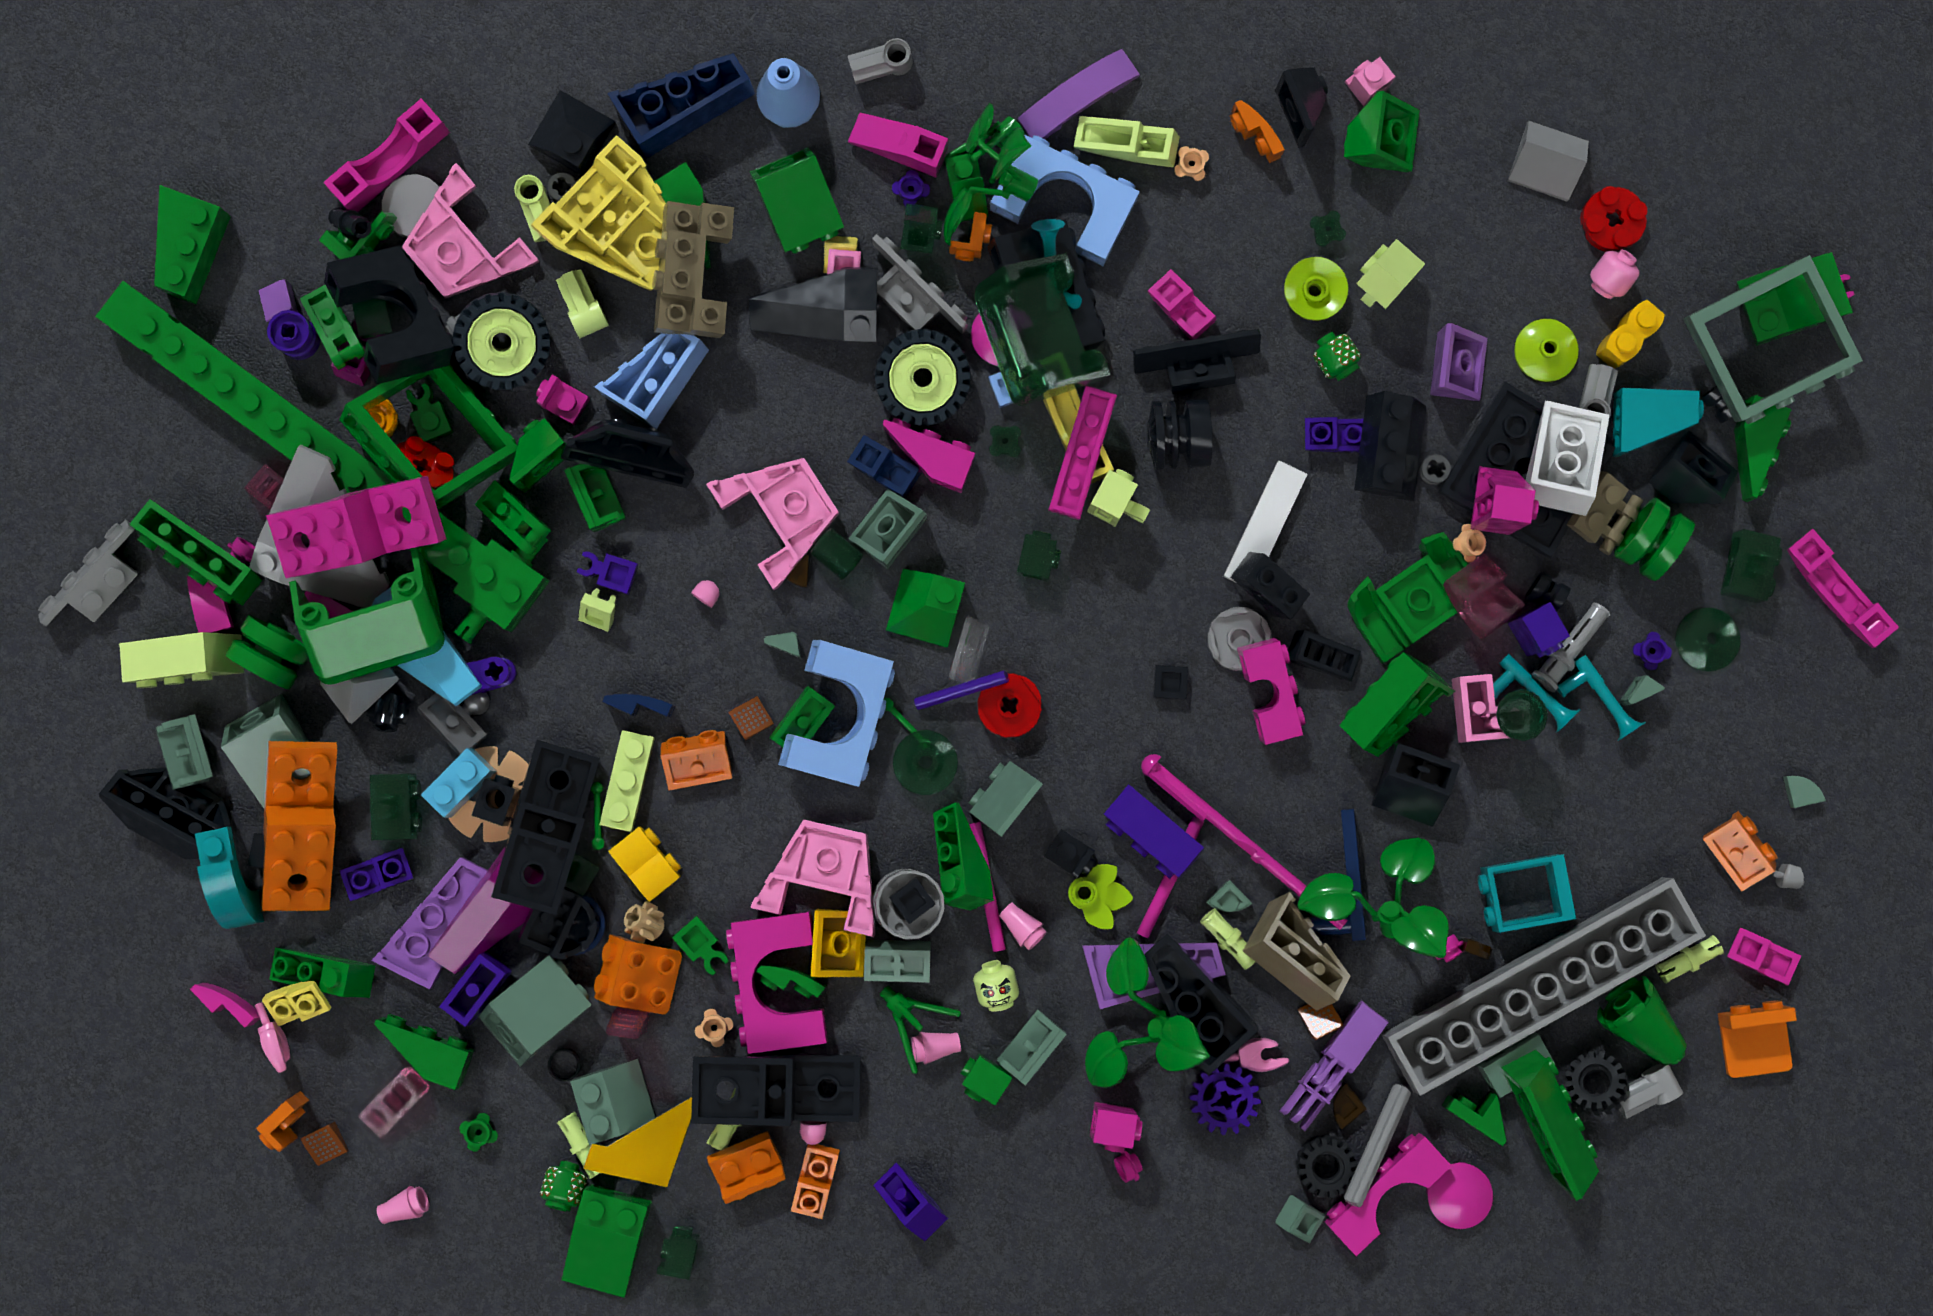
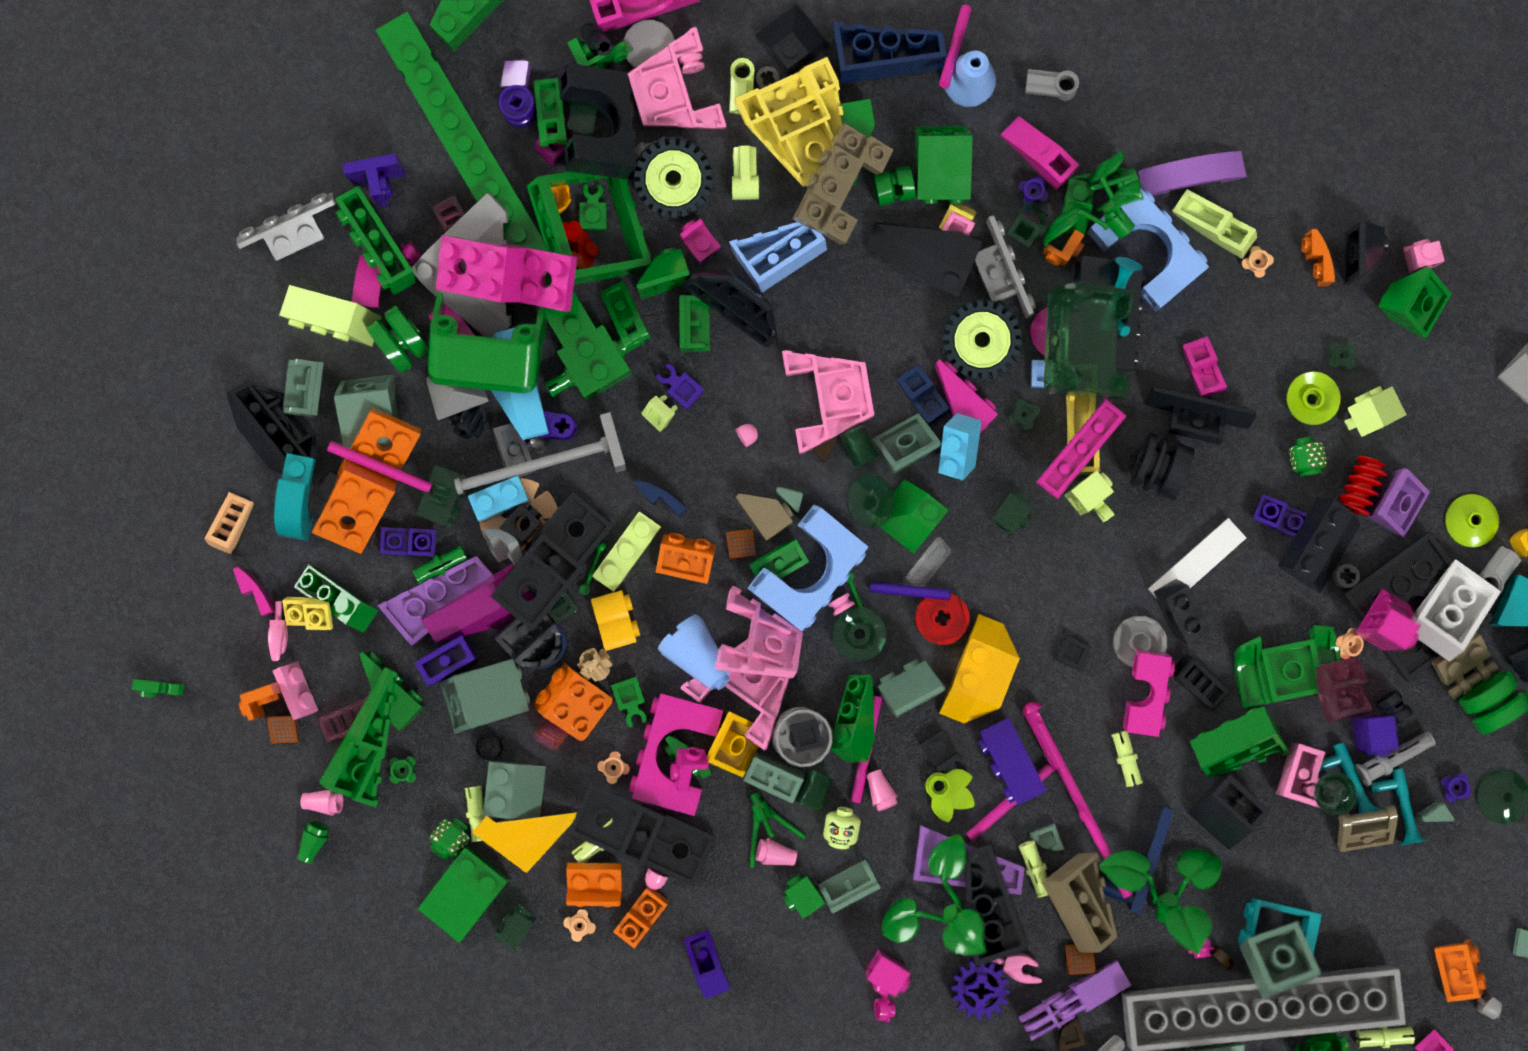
camera: 30 degrees right, 0 degrees up
(155, 1162) = (150, 688): none -> green plate
(164, 478) = (376, 173): none -> dark purple bracket
(177, 950) = (233, 536): none -> light nougat slope
(305, 804) = (380, 467): none -> dark pink bar
(319, 1095) = (295, 690): none -> bright pink plate
(408, 901) = (425, 573): none -> green pin
(410, 1255) = (312, 840): none -> green cone
(423, 1141) = (358, 759): none -> green wedge
(469, 205) = (691, 63): none -> bright pink bush
(483, 833) = (502, 545): none -> light grey slope
(554, 670) = (607, 444): none -> light grey tile
(749, 259) = (886, 191): none -> green wheel
(751, 861) = (695, 652): none -> light blue cone
(755, 64) = (955, 46): none -> dark pink bar
(759, 1219) = (587, 925): none -> light nougat plate
(765, 672) = (766, 514): none -> dark tan slope
(789, 986) = (686, 761): none -> dark pink bracket
(831, 816) = (771, 644): none -> bright pink wing
(865, 611) = (862, 505): none -> clear green dish
(890, 737) = (841, 604): none -> bright pink bush
(947, 506) = (959, 446): none -> medium azure brick
(948, 956) = (814, 790): none -> clear green piece
(1078, 747) = (981, 672): none -> yellow wedge
(1279, 774) = (1127, 758): none -> yellowish green pin
(1410, 362) = (1362, 485): none -> red piece
(1538, 924) = (1280, 959): none -> sand green brick
(1574, 744) = (1367, 829): none -> dark tan plate

